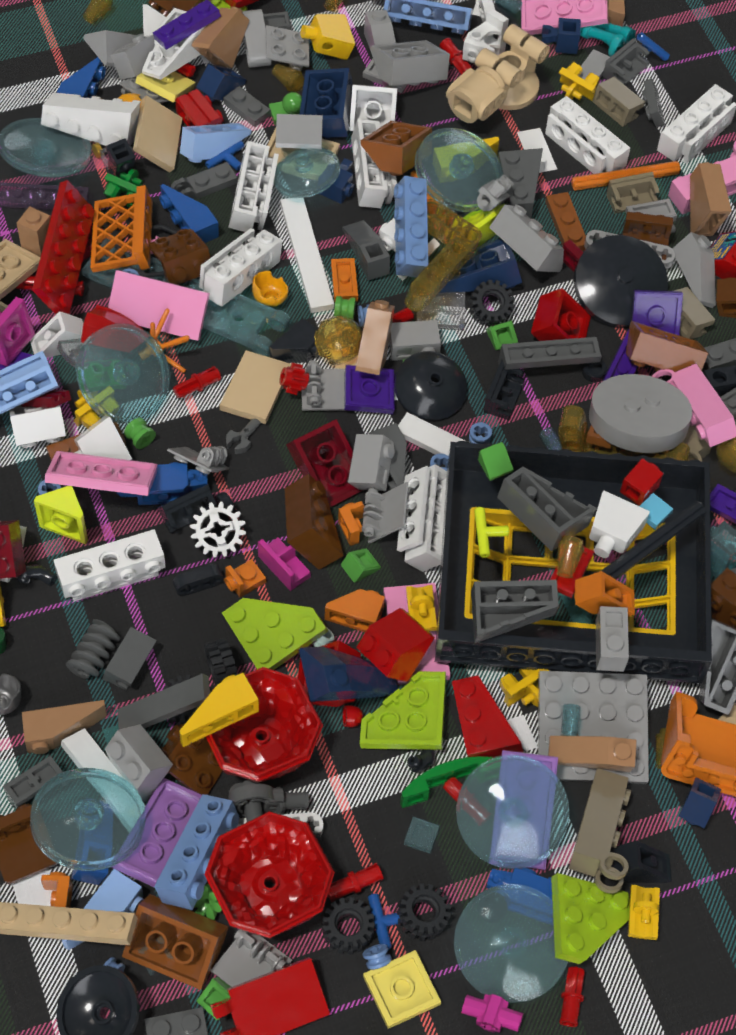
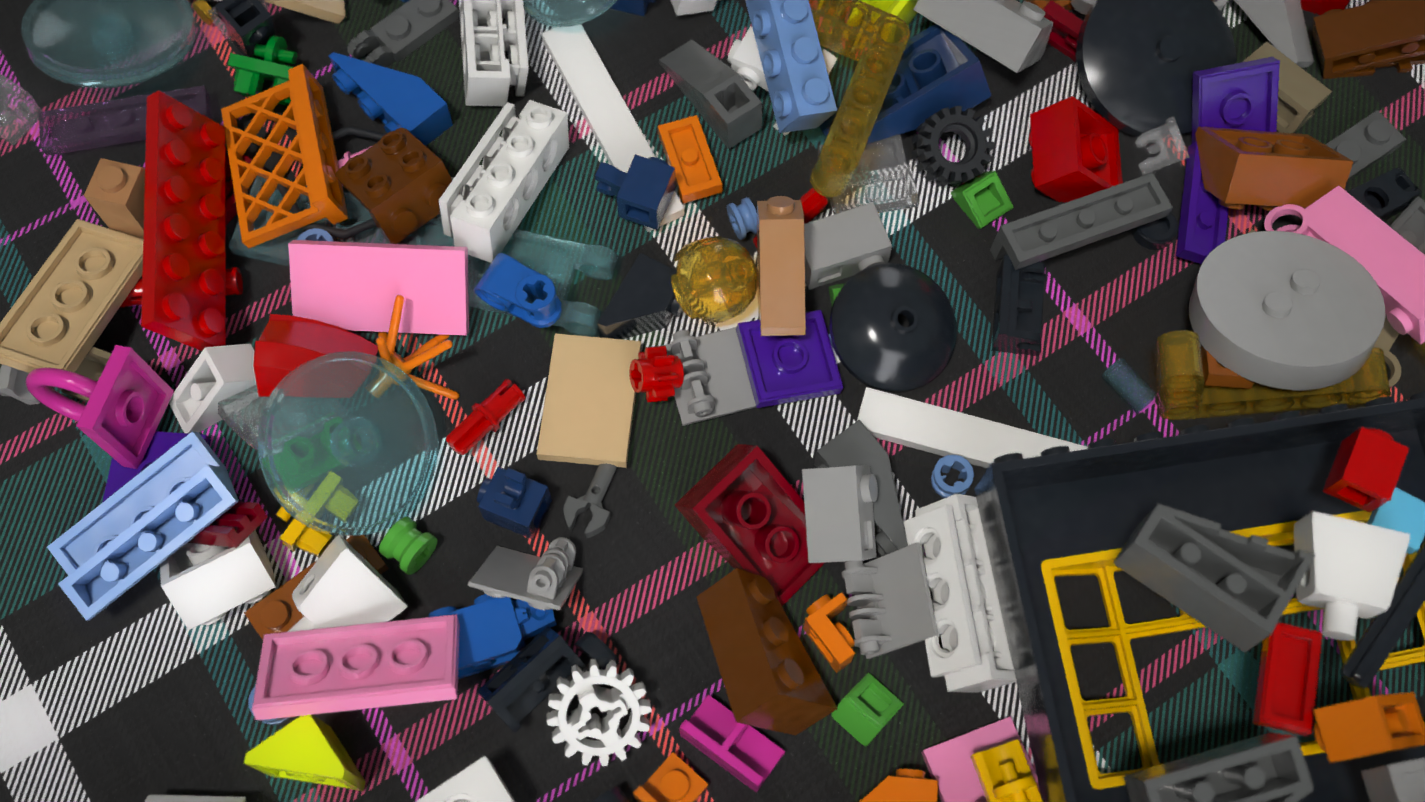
camera: 10 degrees left, 10 degrees up
(201, 424) = (514, 501): none -> dark blue brick
(232, 322) = (519, 291): none -> blue piece
(268, 289) = (567, 208): light orange hair -> none
(312, 288) = (642, 191): none -> dark blue brick
(345, 307) = (706, 213): bright green wheel -> none
(480, 428) = (997, 387): medium blue bush -> none
(485, 531) = (1109, 639): neon yellow piece -> none
(495, 461) = (1088, 490): bright green slope -> none
(569, 555) = (1289, 664): clear yellow cone -> none
(607, 328) = (1168, 143): none -> clear hinge

